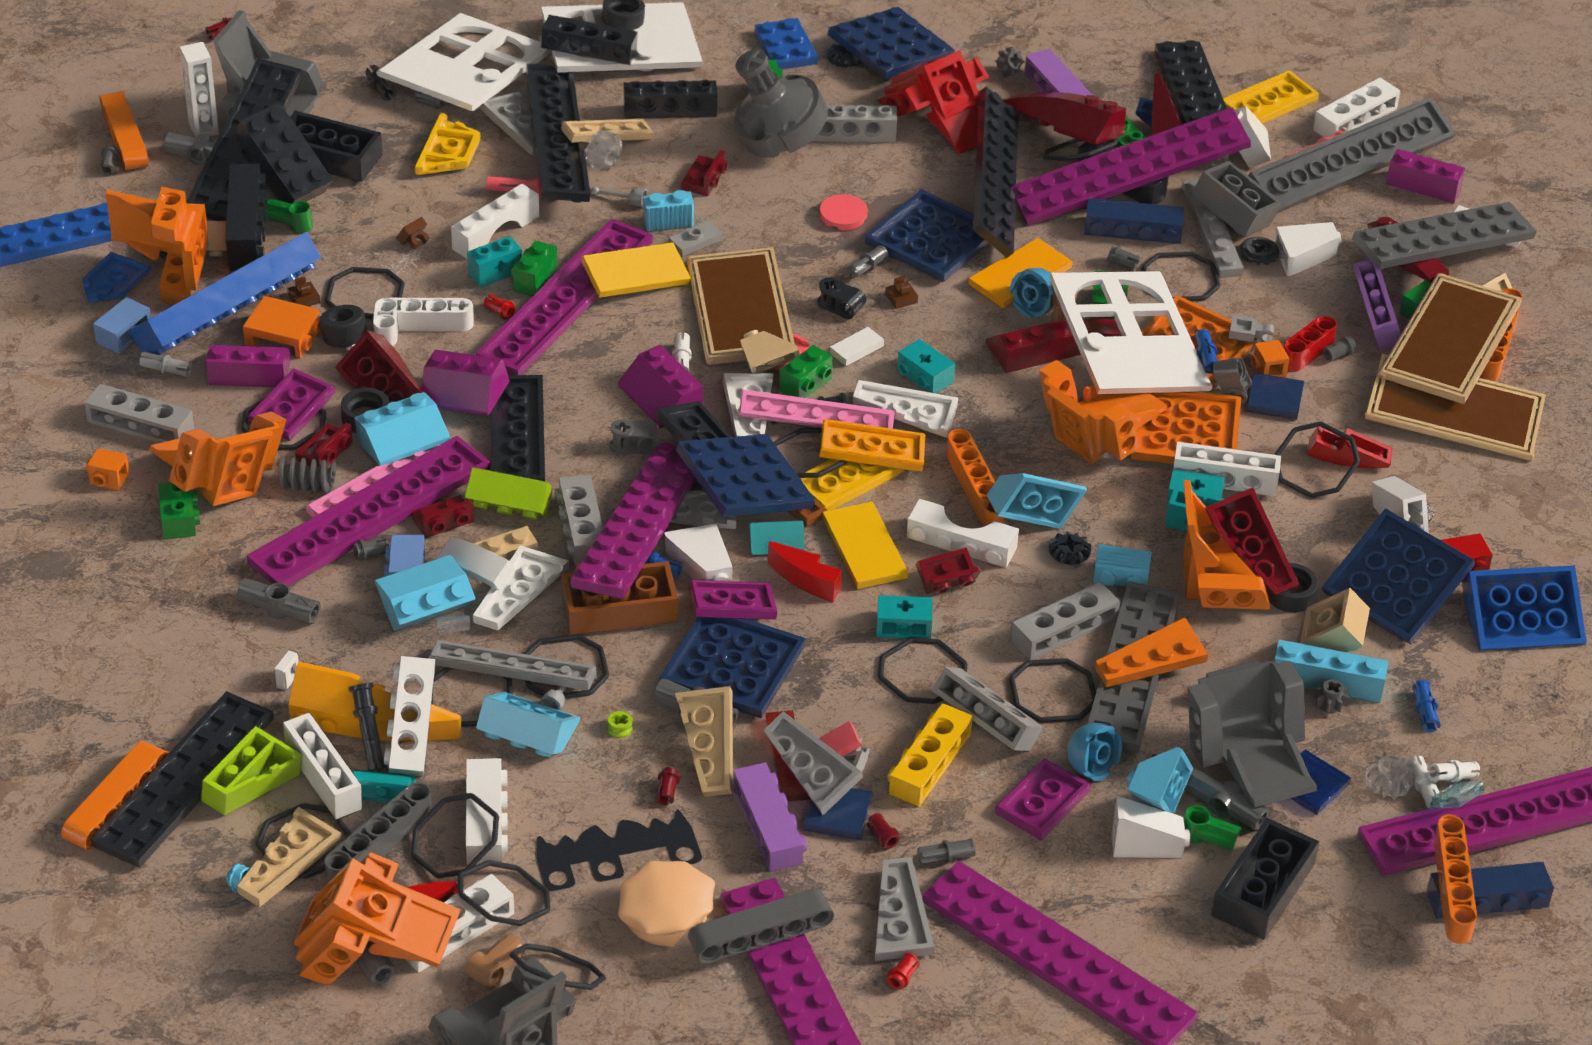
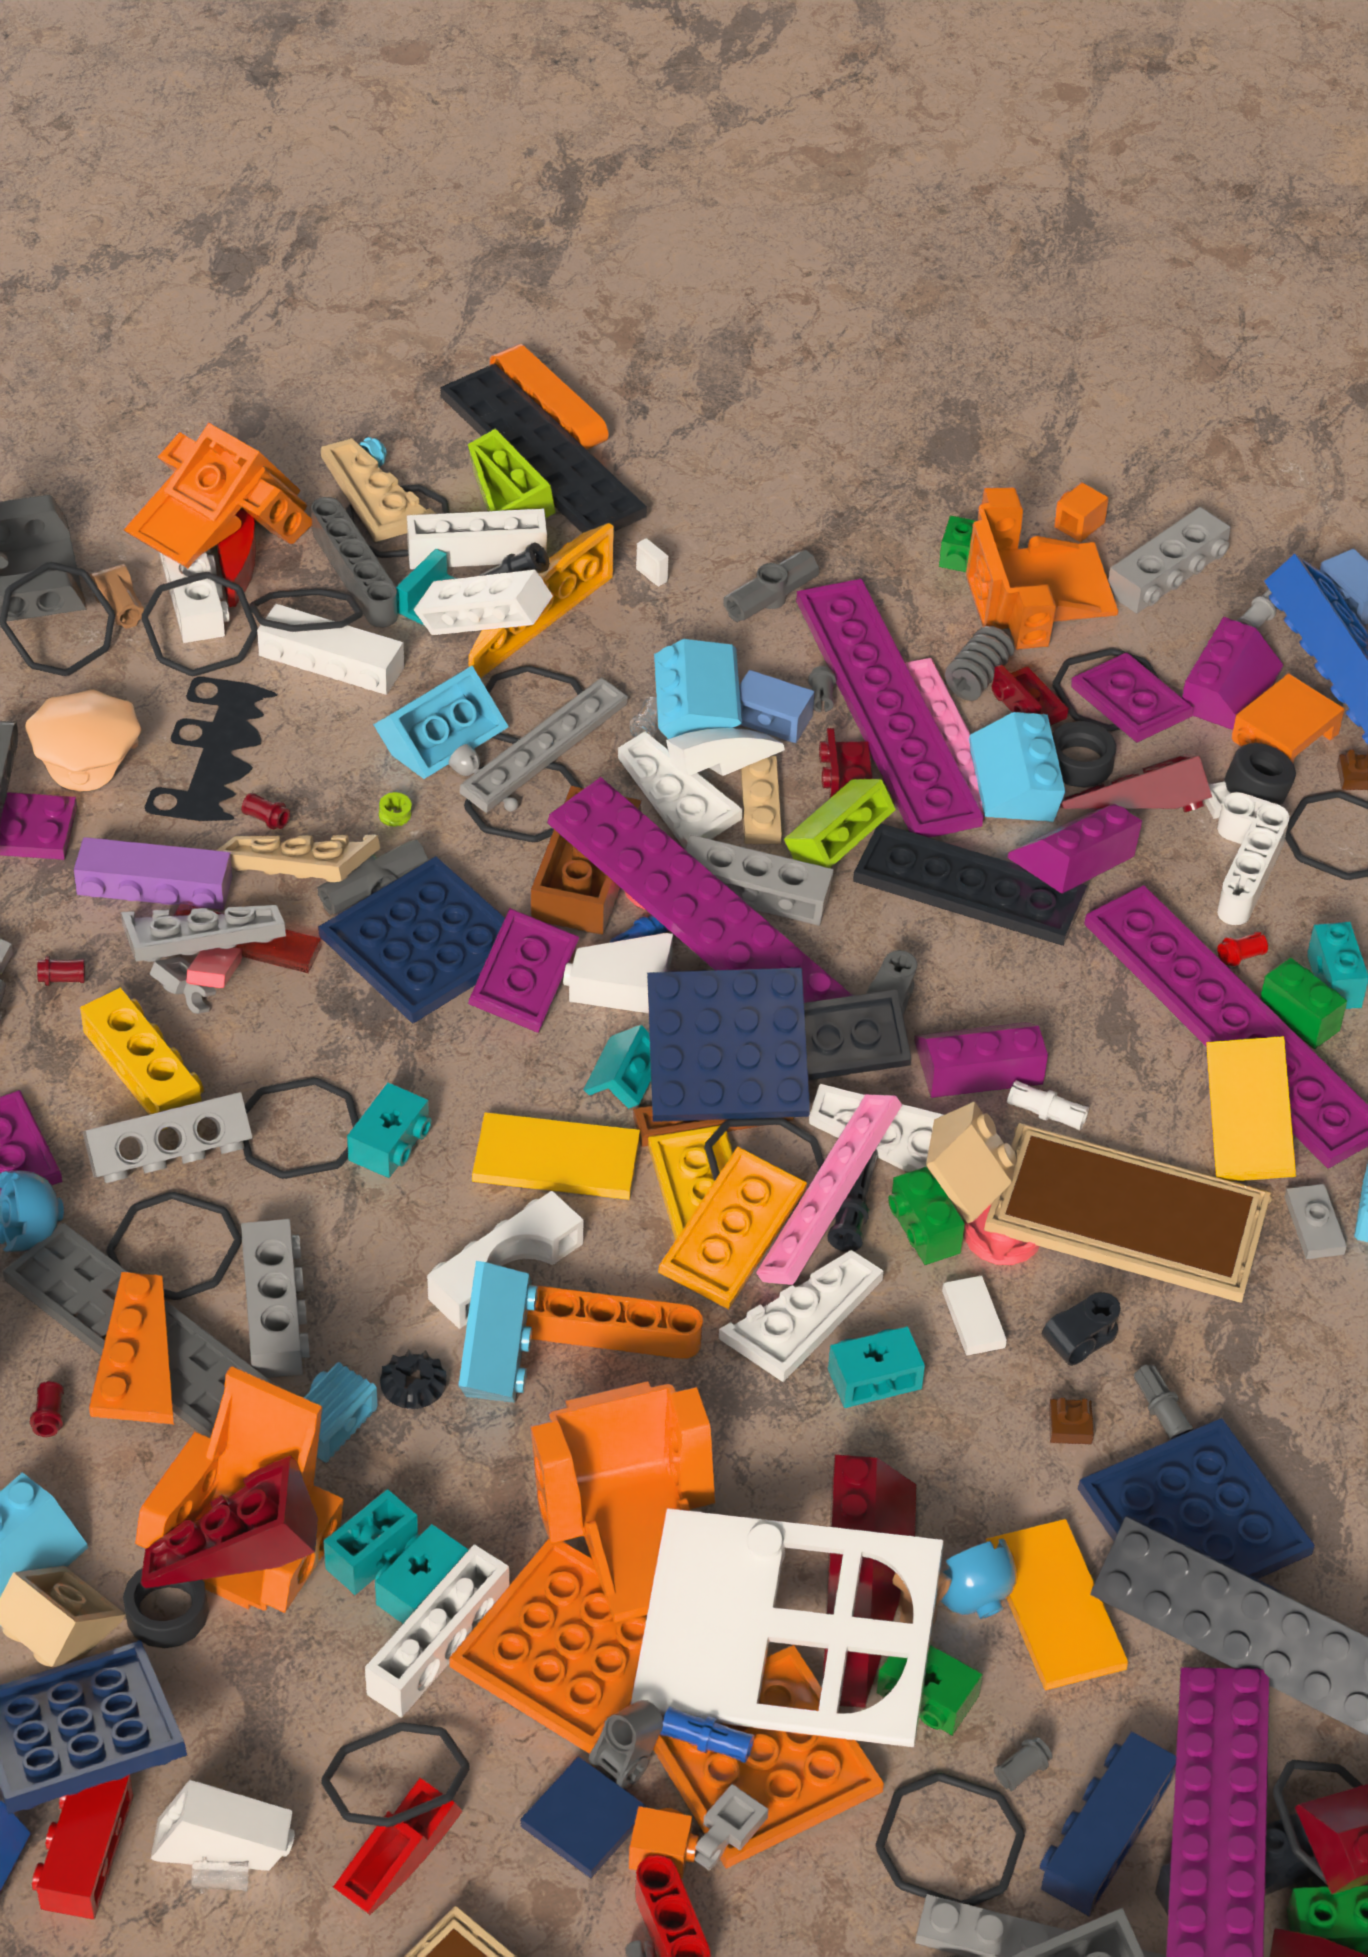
camera: 115 degrees right, 5 degrees up
(805, 570) = (535, 1063): red slope -> none
(843, 212) = (1309, 1430): coral tile -> none
(843, 818) = (109, 952): dark blue tile -> none
(947, 570) = (441, 1211): dark red bracket -> none

